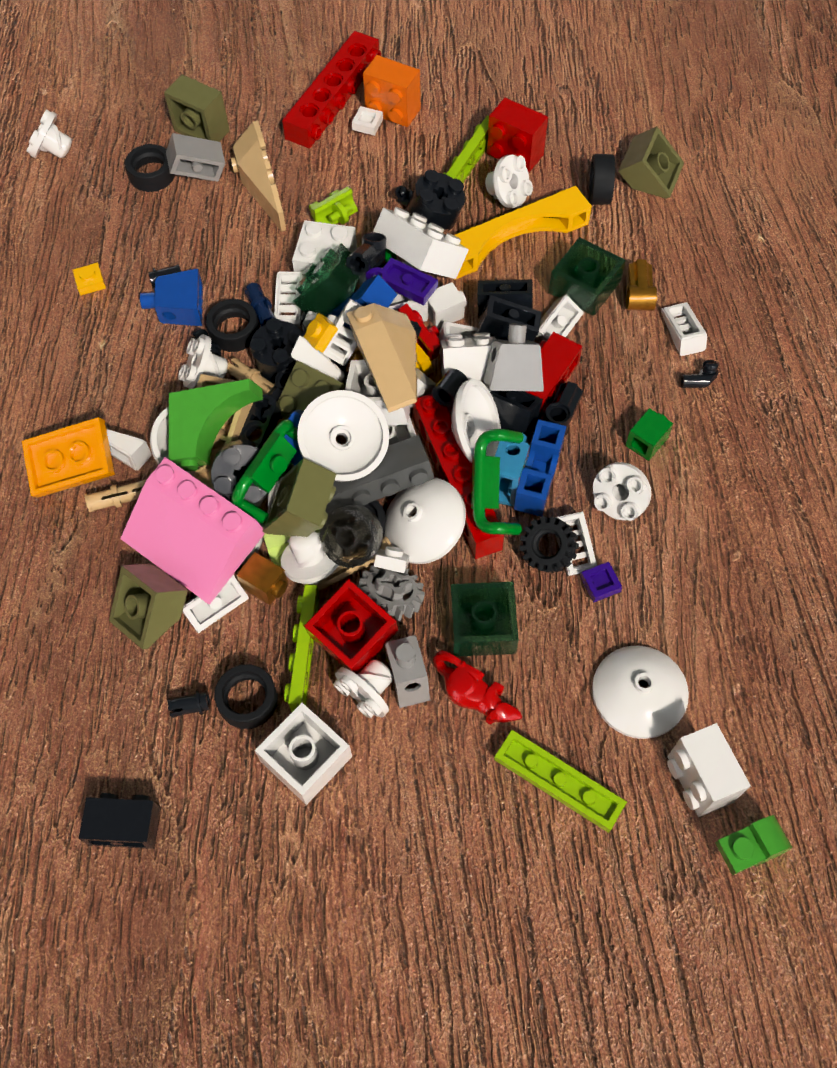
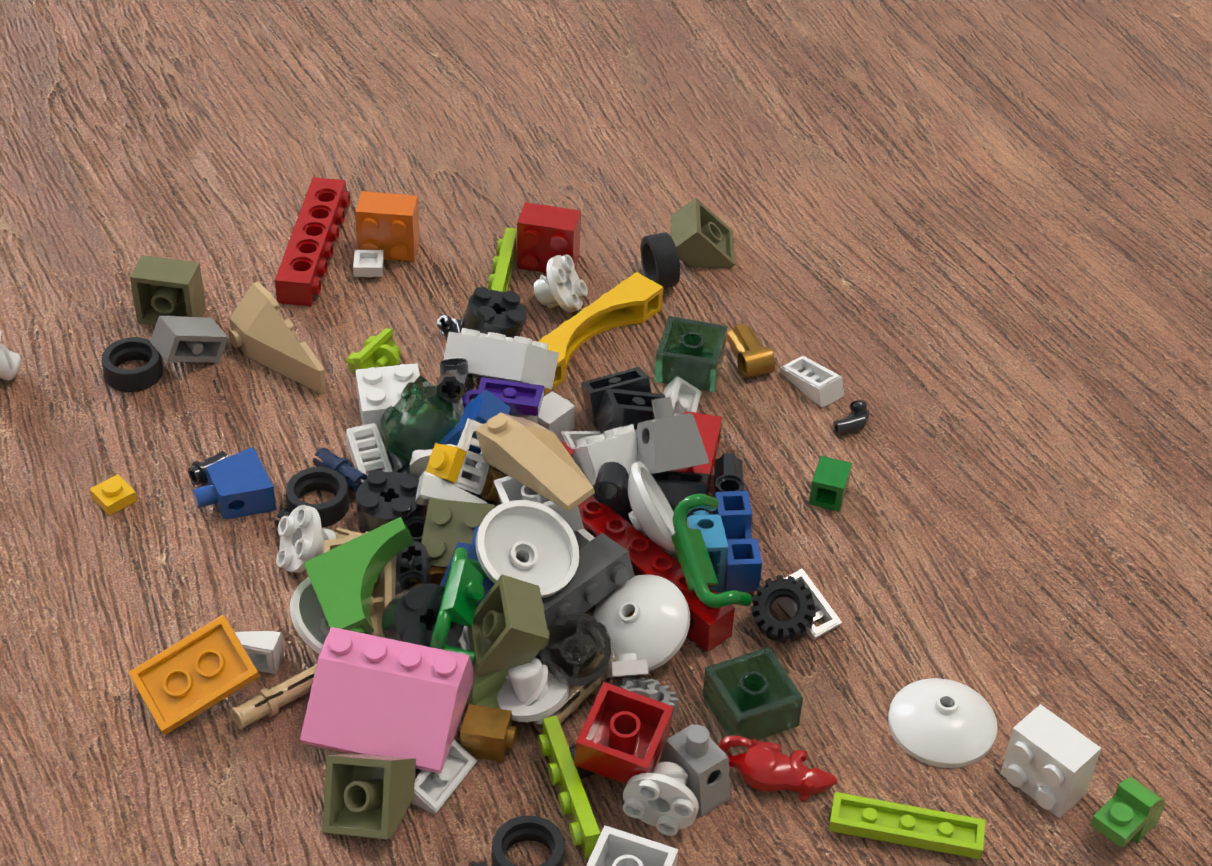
camera: 25 degrees left, 20 degrees down
(601, 582) = (852, 631): dark purple plate -> none
(621, 491) = (832, 539): white plate -> none

